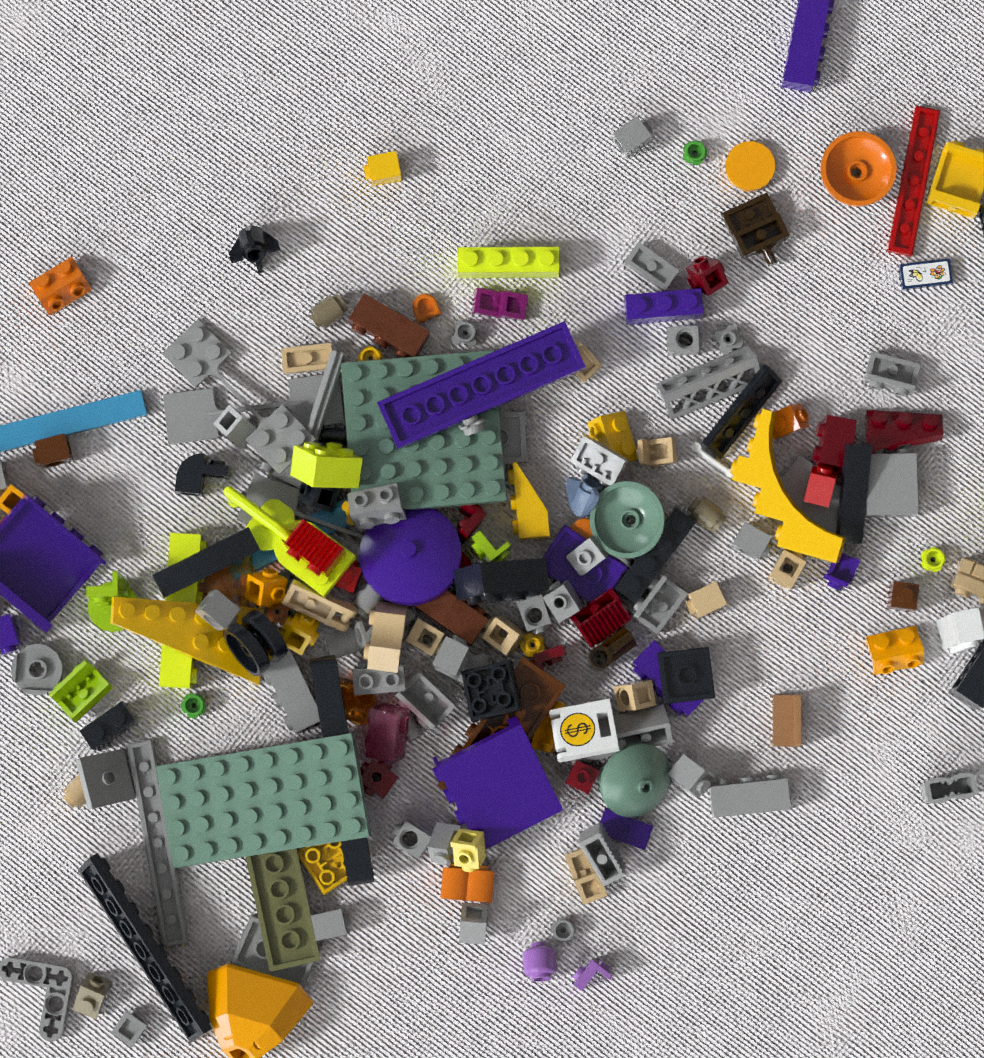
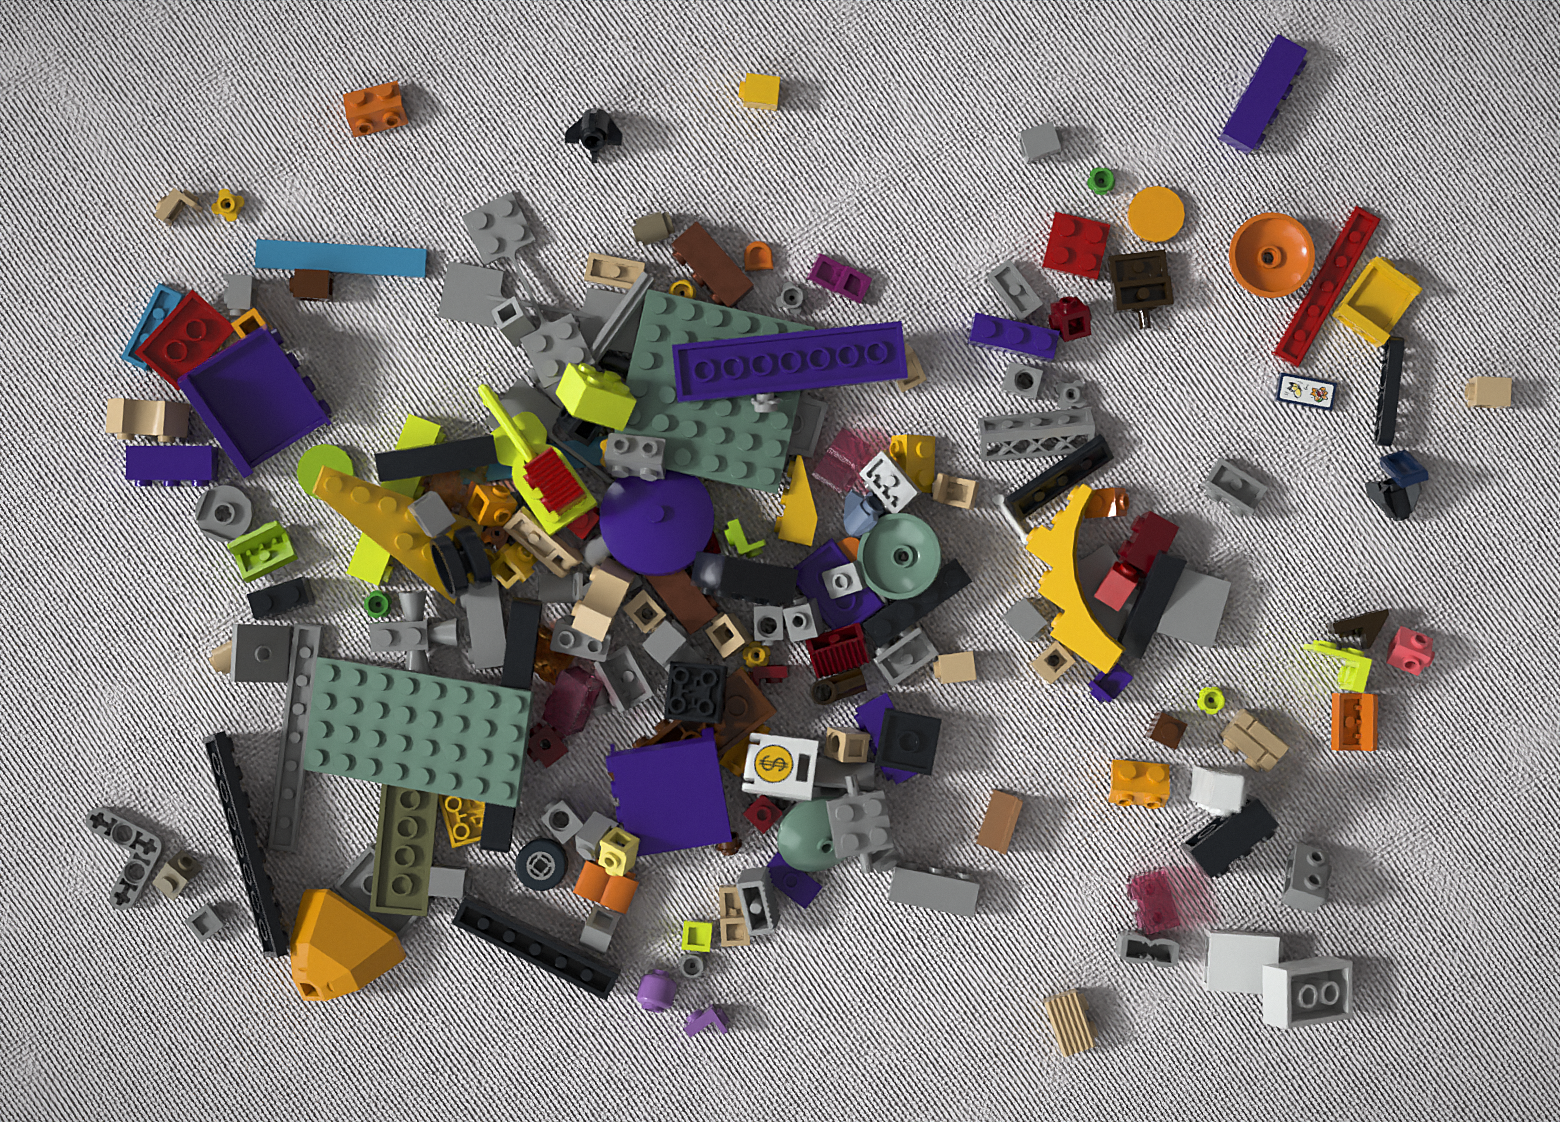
camera: 15 degrees right, 5 degrees up
(103, 594) = (336, 455): lime bracket -> none
(192, 474) = (454, 355): black brick -> none
(232, 719) = (413, 632): none -> light grey brick
(405, 883) = (548, 857): none -> black wheel
(423, 956) = (536, 947): none -> black brick
(473, 519) = (737, 500): dark red bracket -> none
(508, 262) = (862, 236): neon yellow brick -> none
(552, 456) = (841, 461): none -> clear pink brick
(559, 903) = (696, 935): none -> neon yellow plate
(562, 817) = (732, 847): none -> reddish brown plate
(667, 757) = (859, 823): none -> light grey plate
(691, 214) = (1075, 246): none -> red plate
(706, 514) = (986, 575): dark tan brick -> none
(894, 429) = (1220, 549): dark red wing -> none
(904, 874) = (1070, 1022): none -> tan brick
(940, 746) = (1153, 900): none -> clear pink brick

